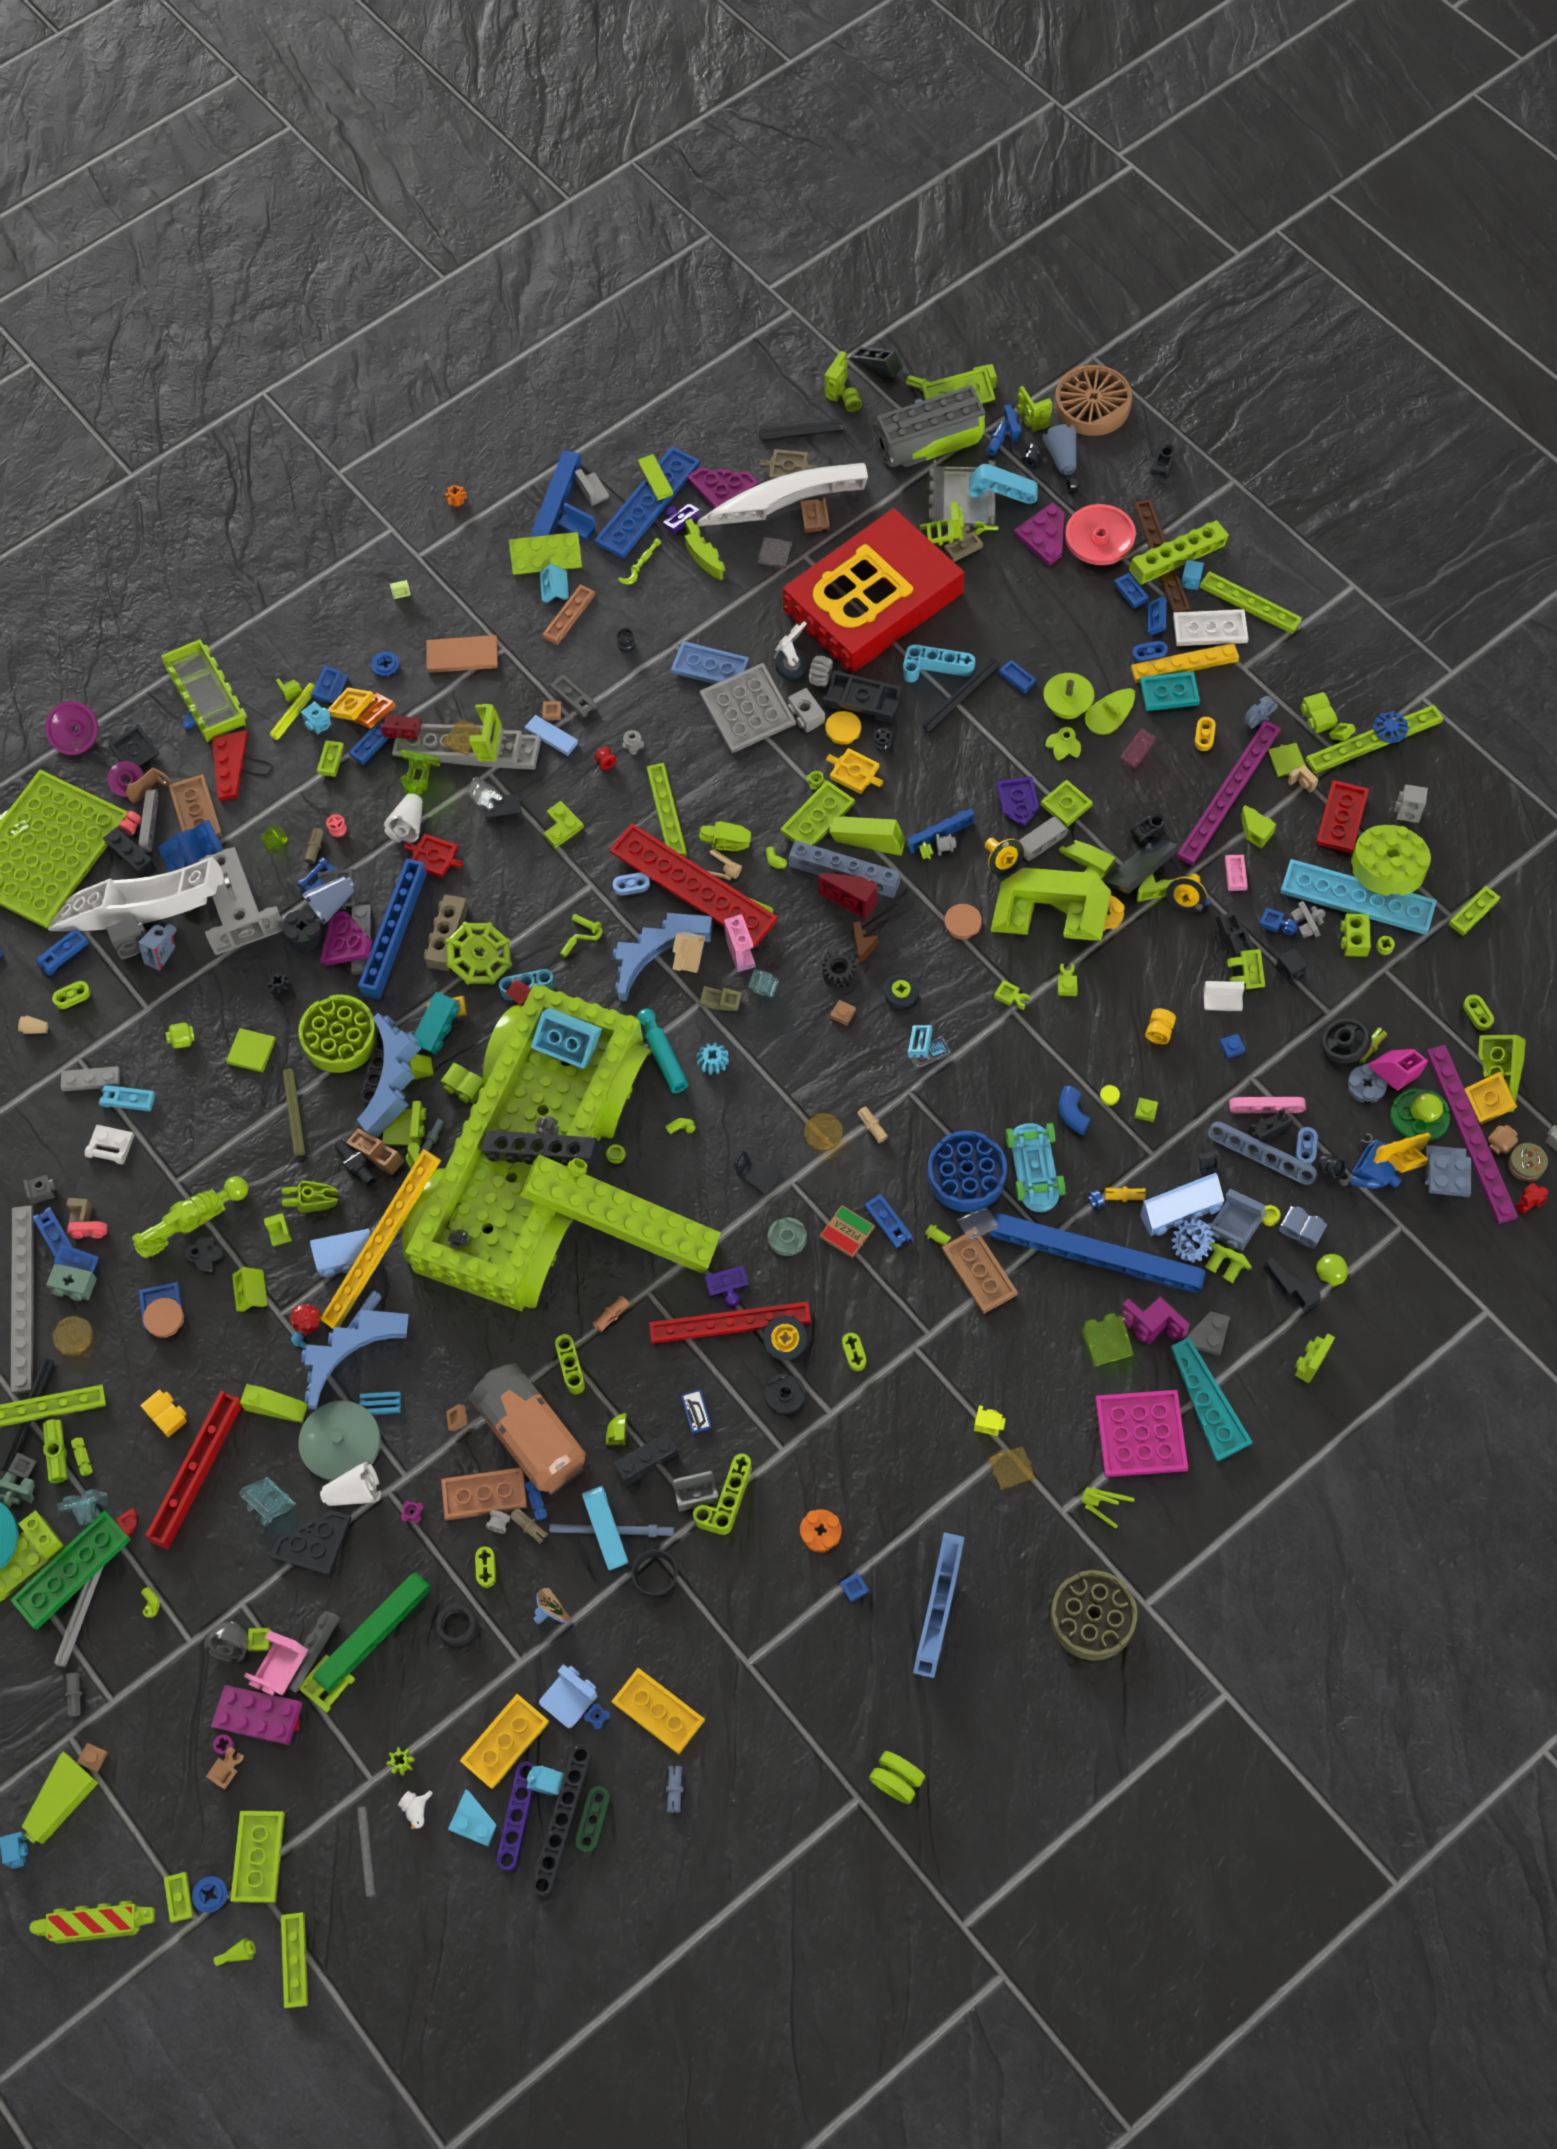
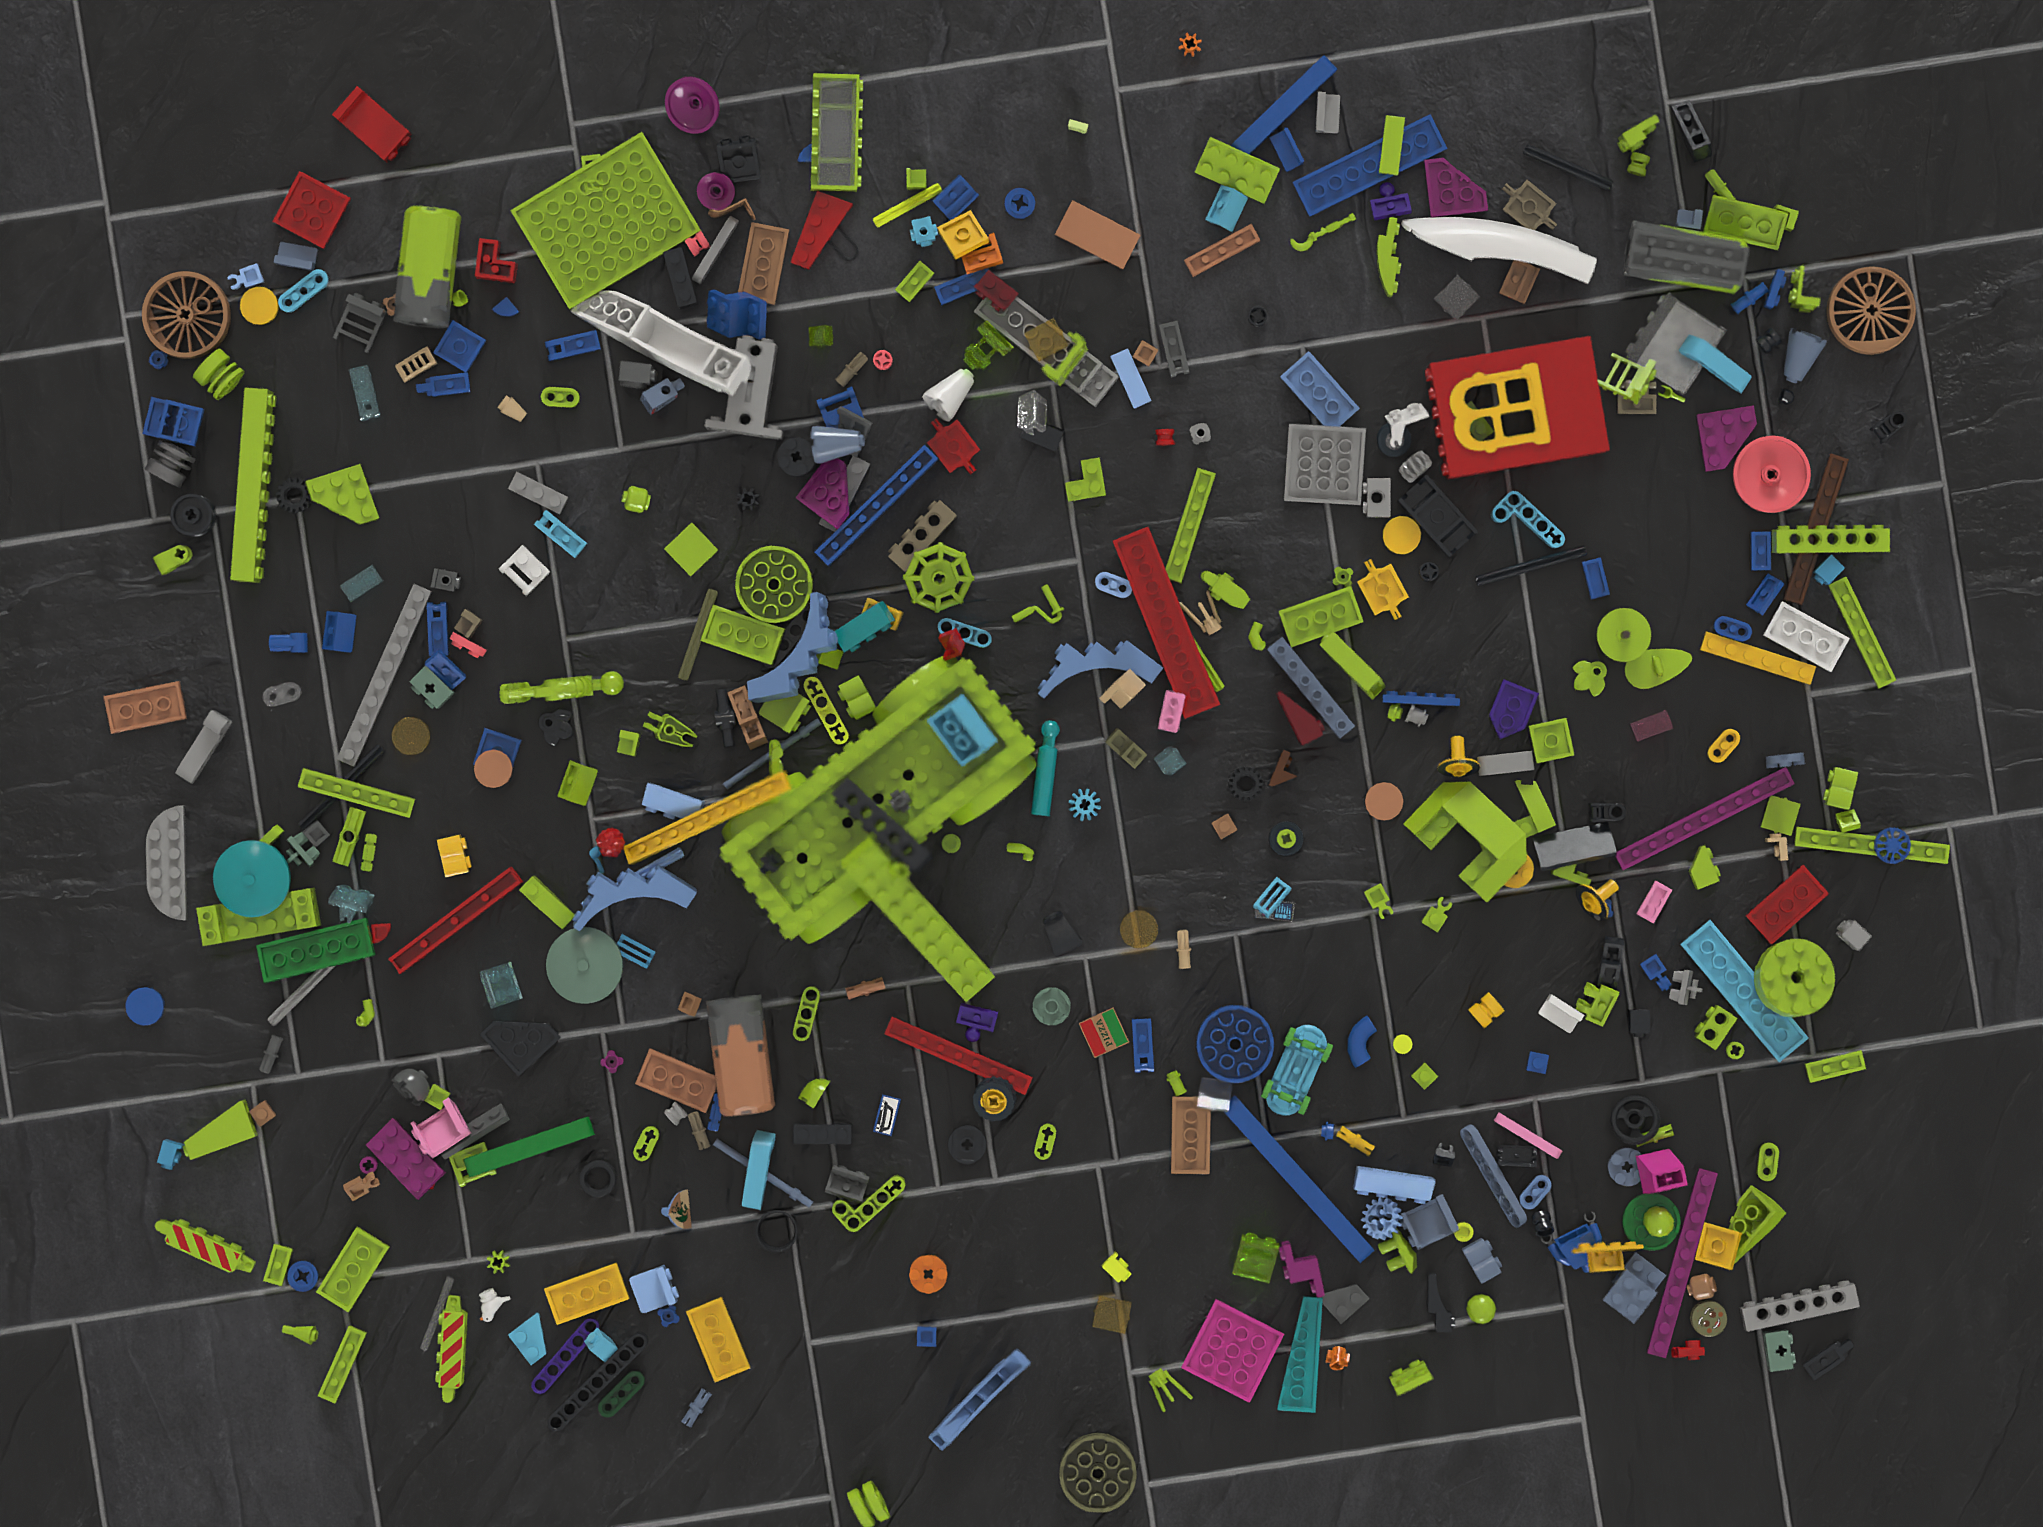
camera: 30 degrees right, 25 degrees up
(333, 1087) = (743, 635): none -> lime plate
(353, 1487) = (574, 1016): white cone -> none
(399, 1875) = (452, 1348): none -> lime hinge
(443, 1108) = (823, 712): none -> neon yellow beam
(1169, 691) = (1722, 681): teal plate -> none
(1238, 1382) = (1337, 1358): none -> orange gear

